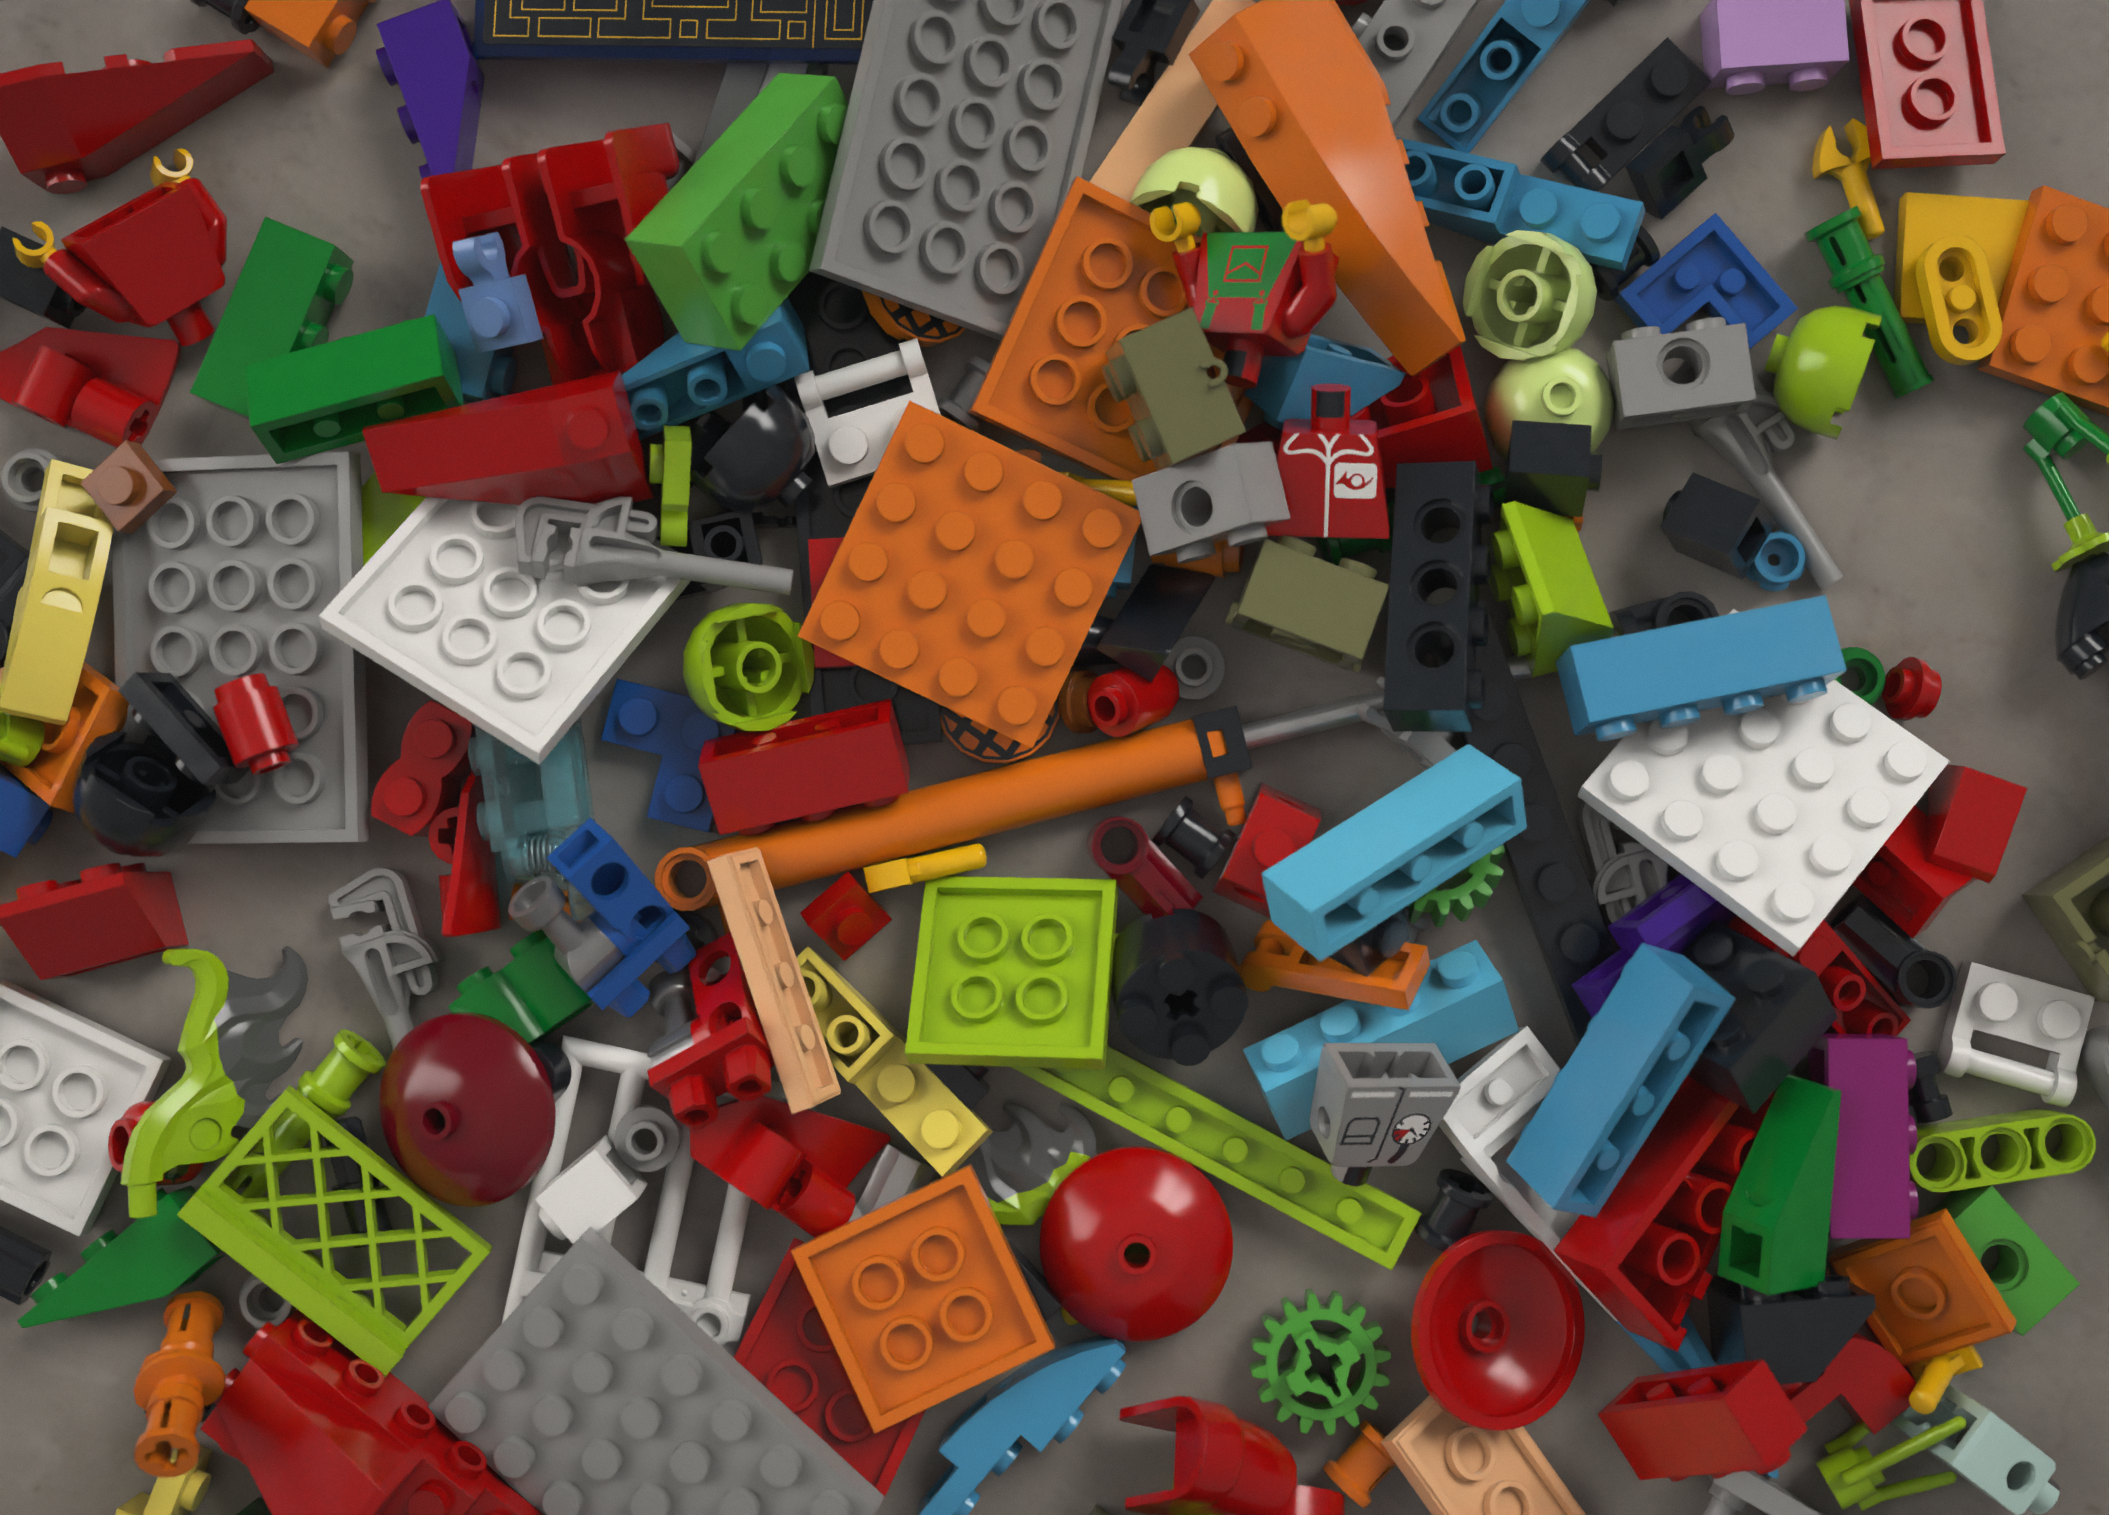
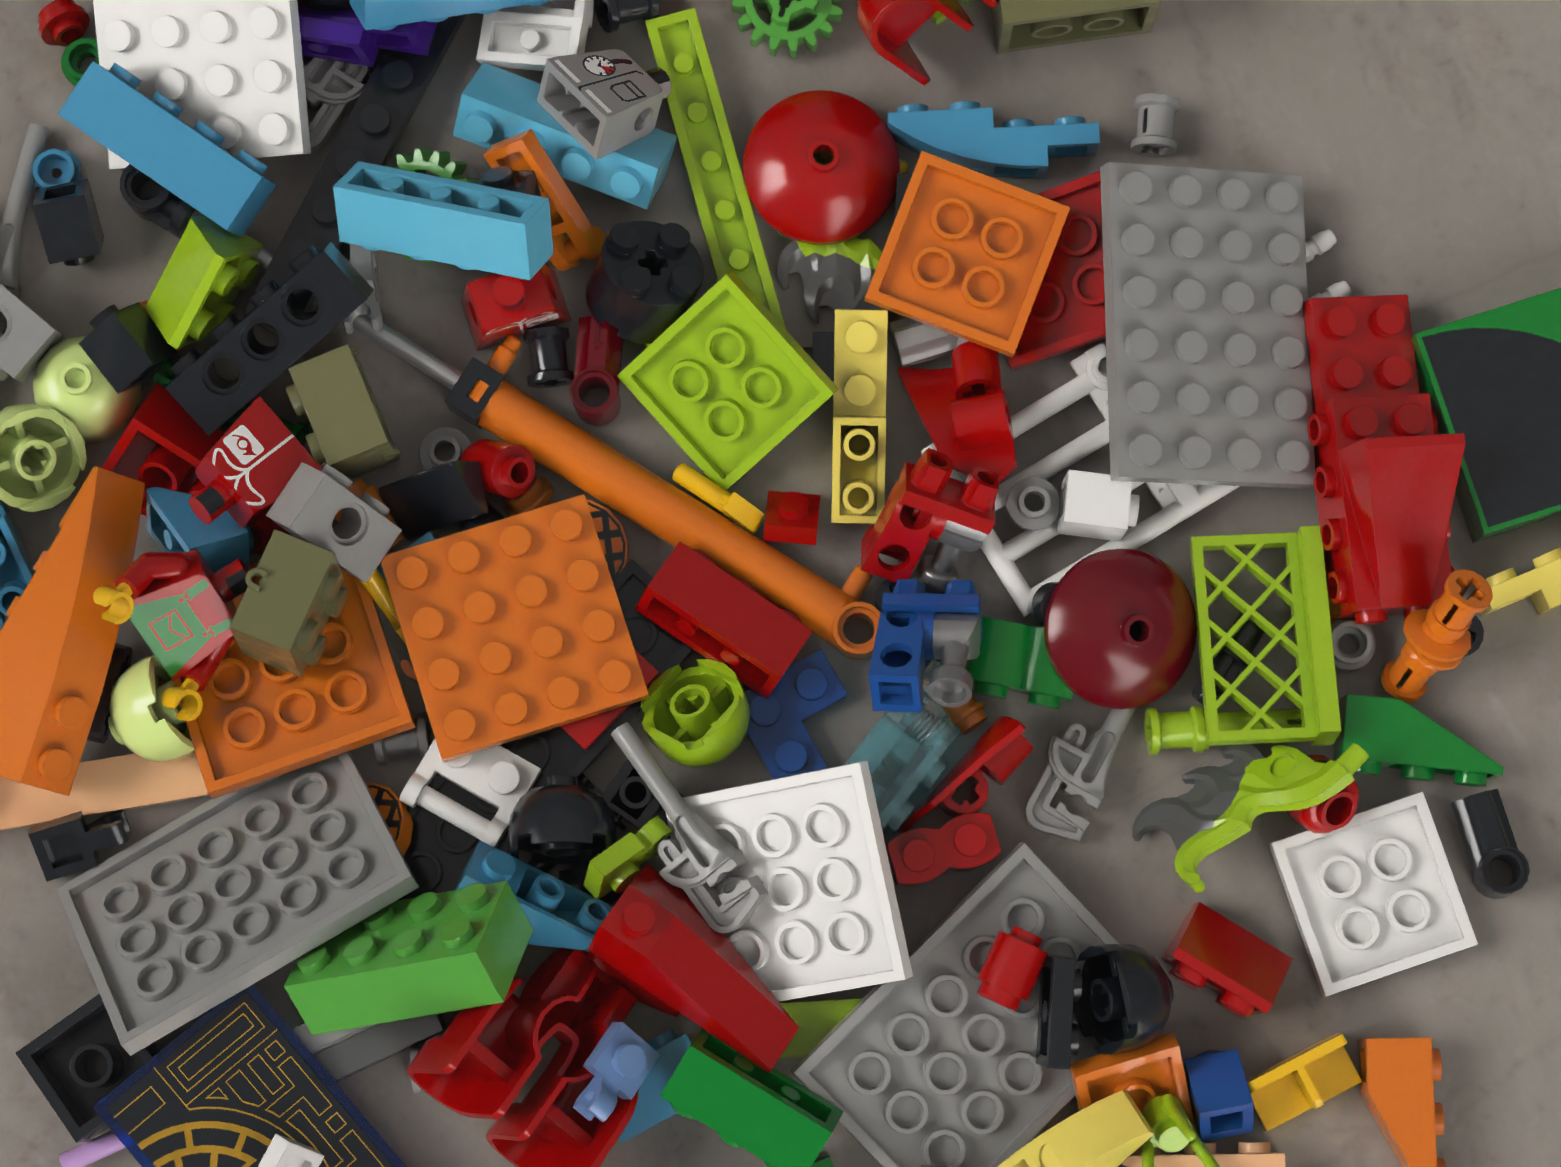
camera: 135 degrees left, 5 degrees down
(774, 978) = (864, 513): light nougat tile -> none

